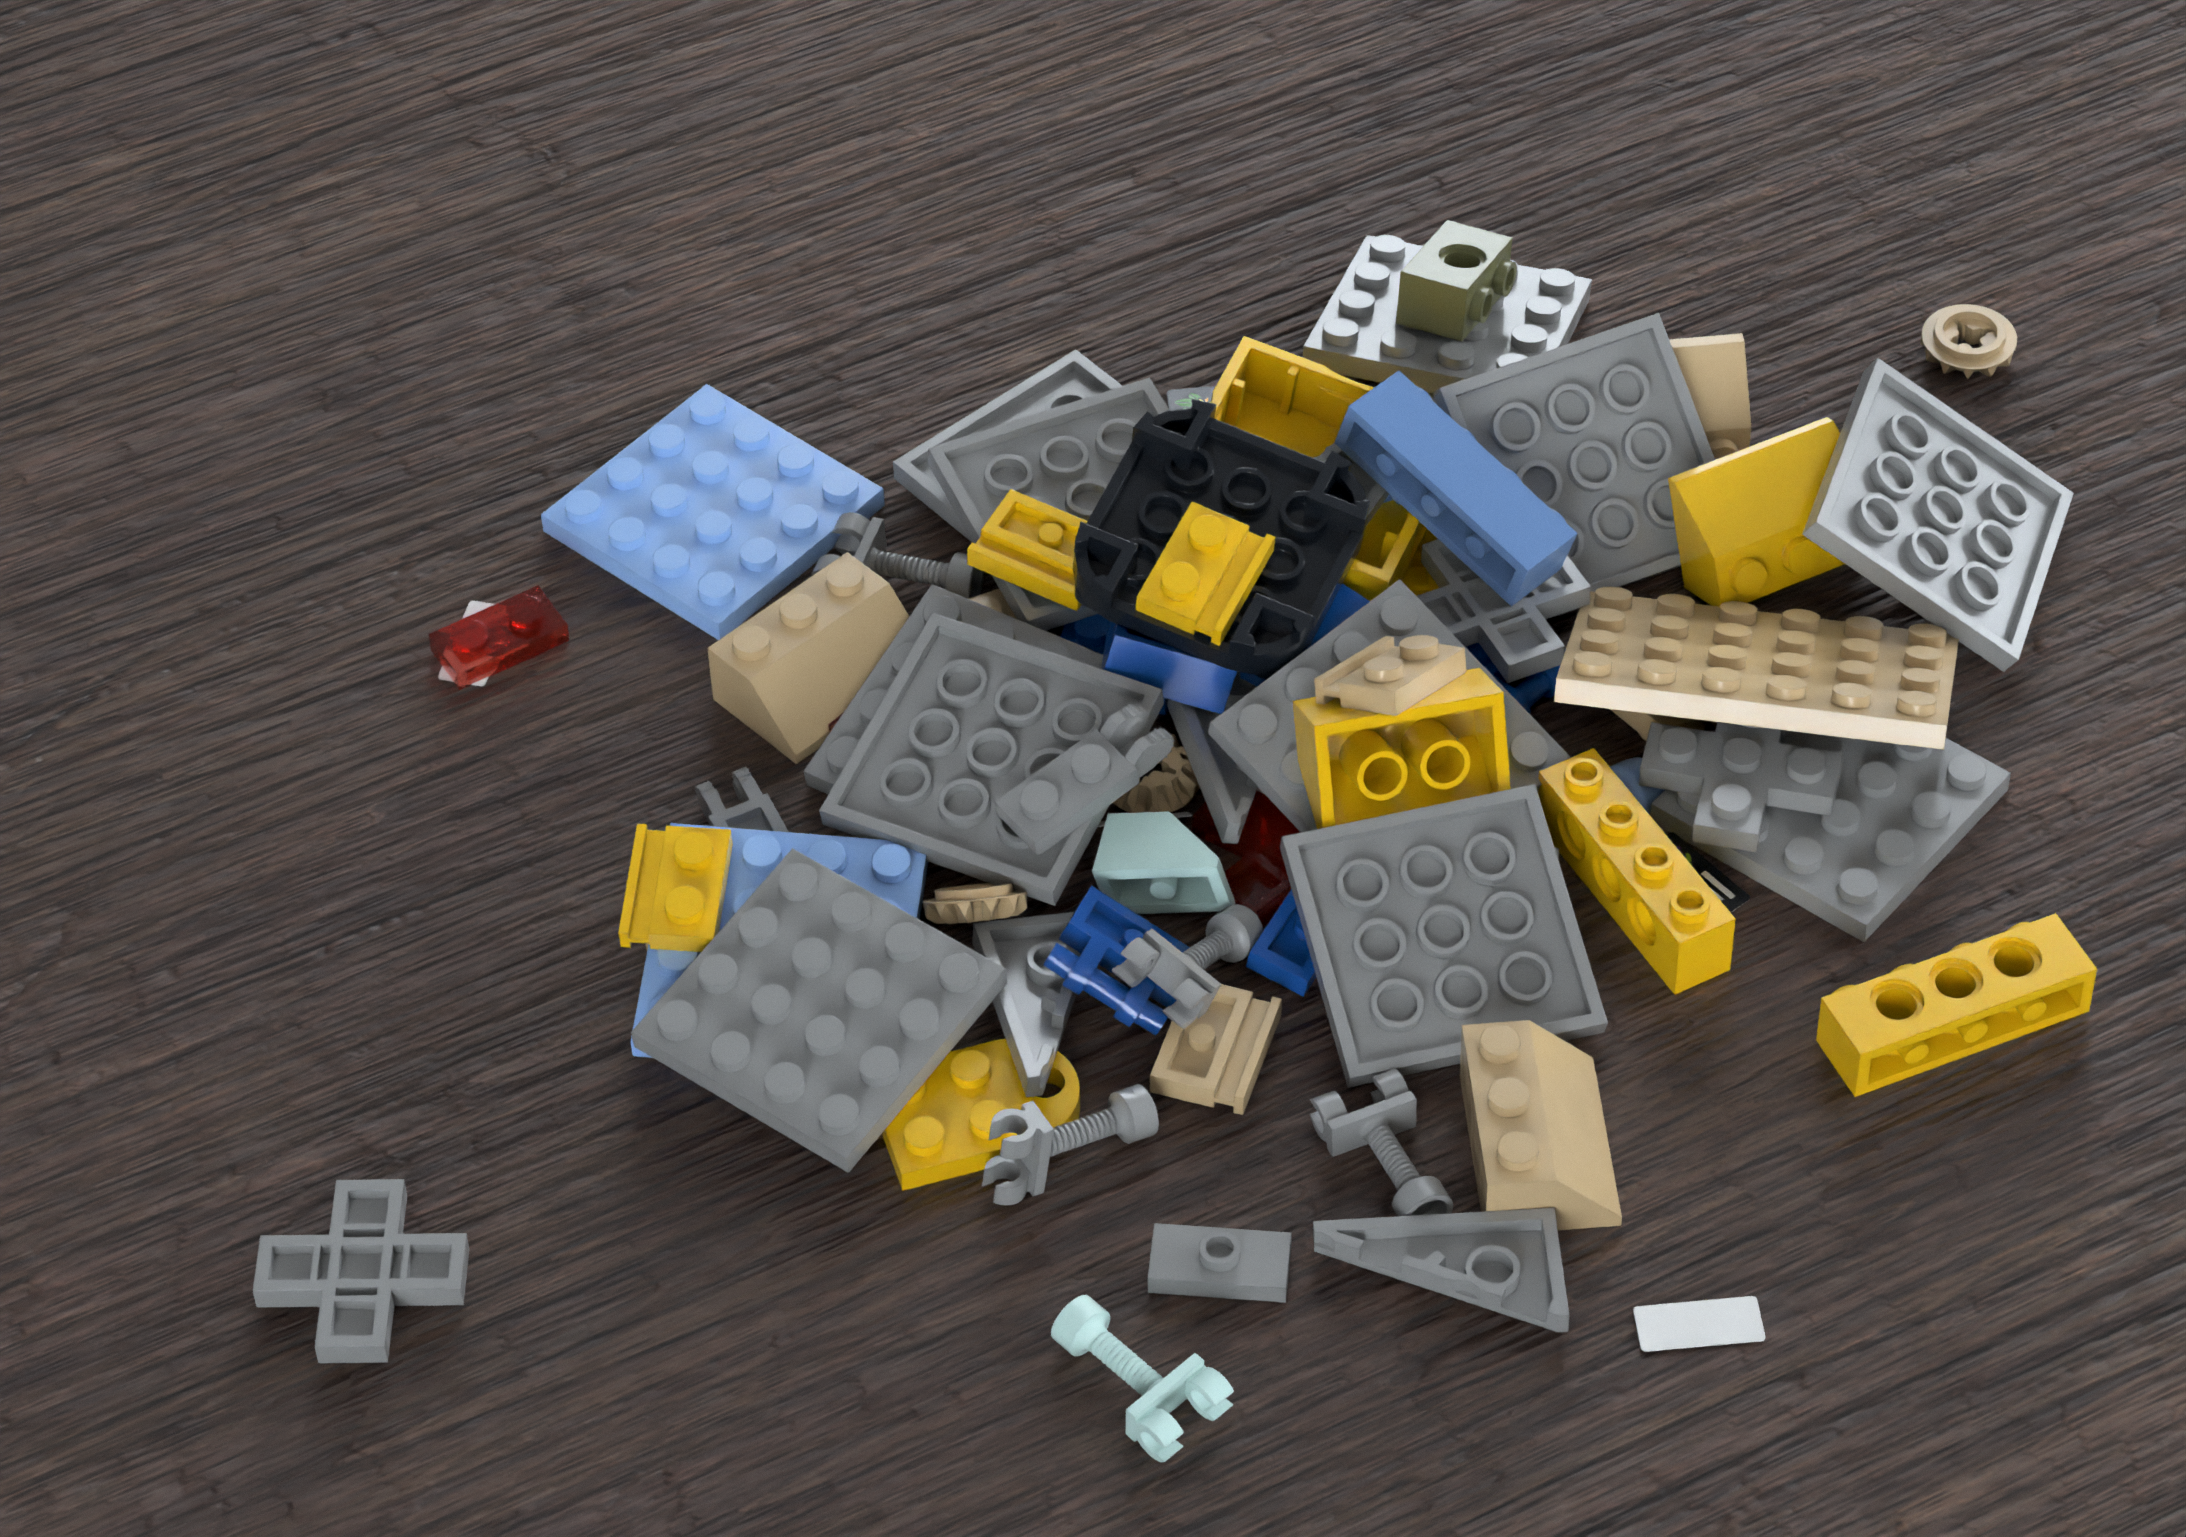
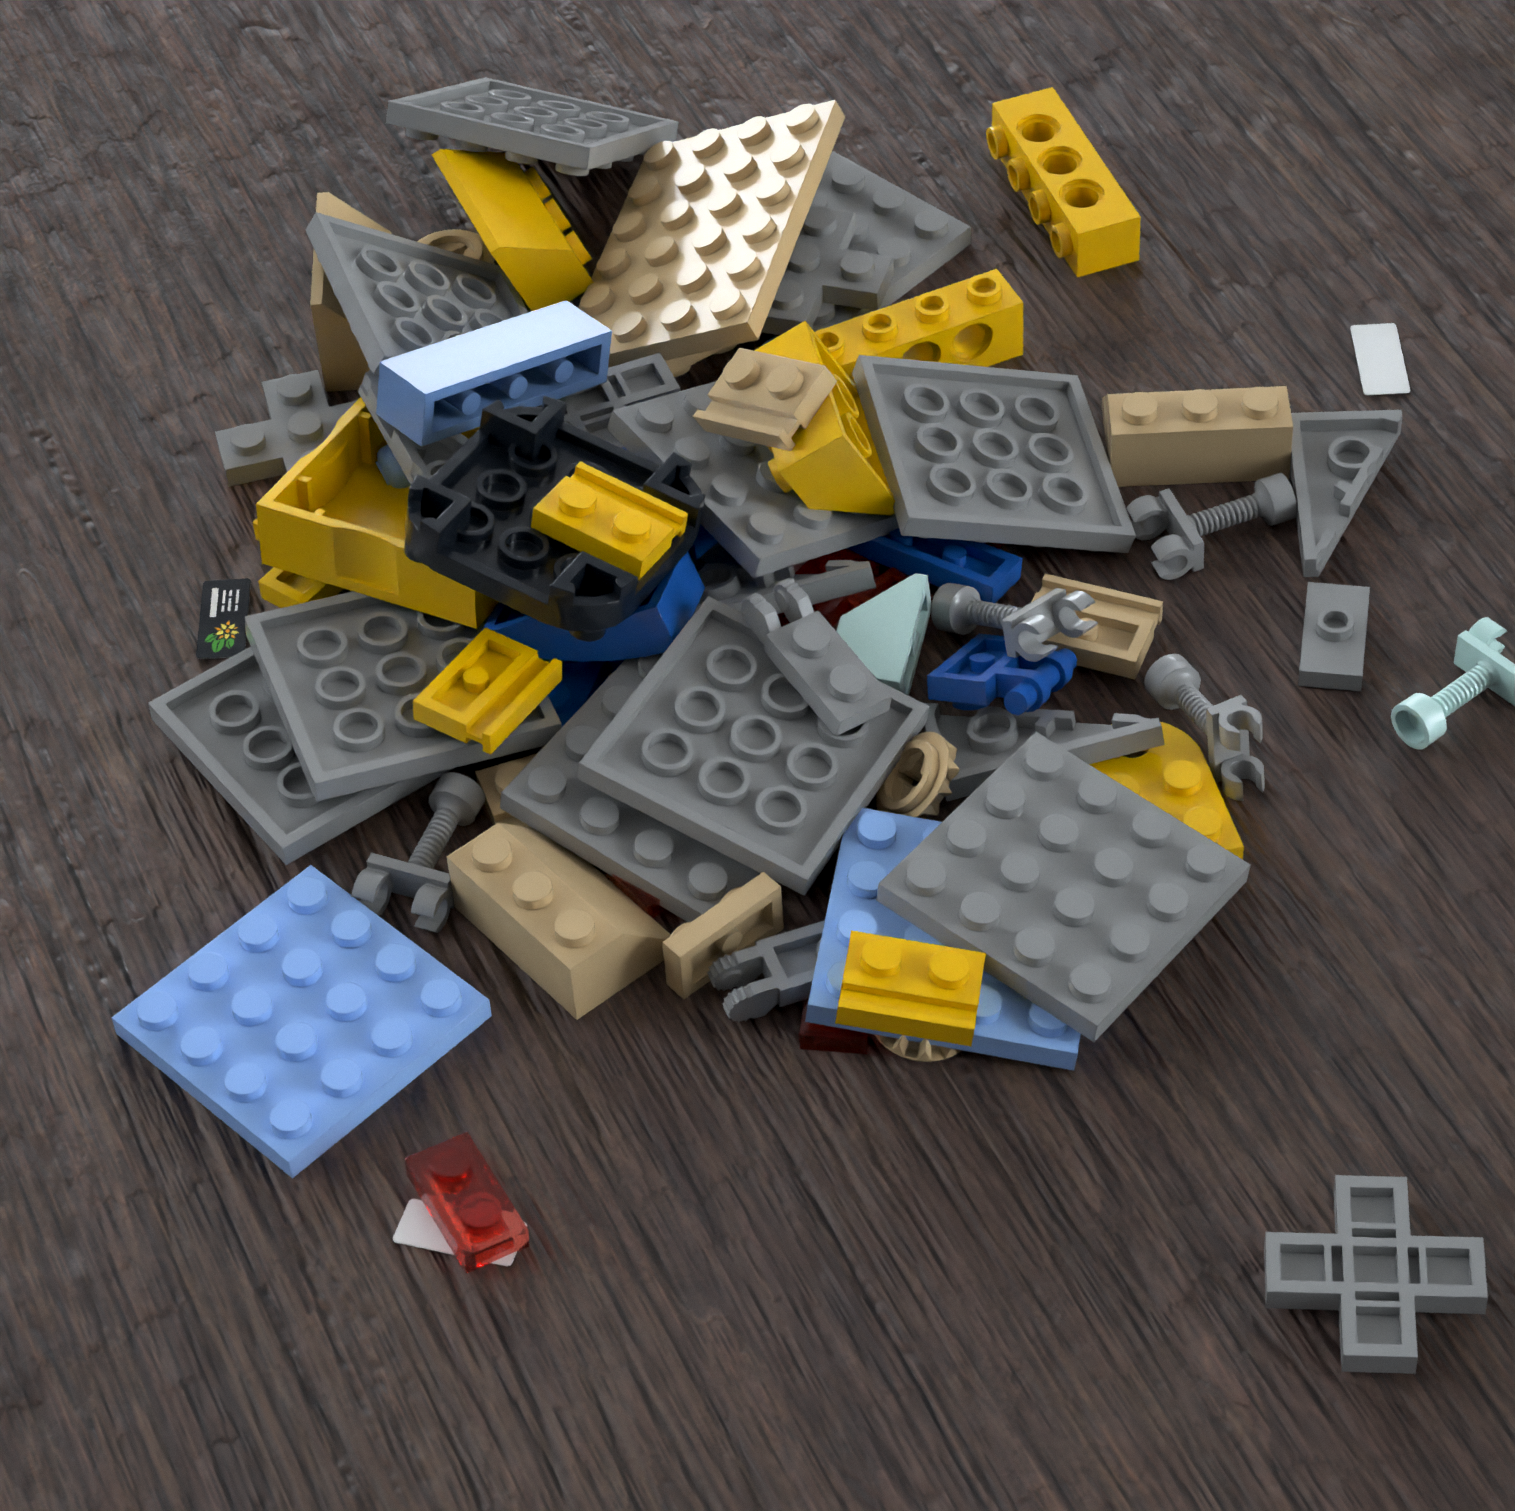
camera: 85 degrees left, 0 degrees up
(783, 772) = (729, 926): none -> tan plate
(1363, 341) = (182, 433): light grey plate -> none
(1455, 280) = (172, 388): olive brick -> none
(1974, 325) = (293, 113): tan gear -> none

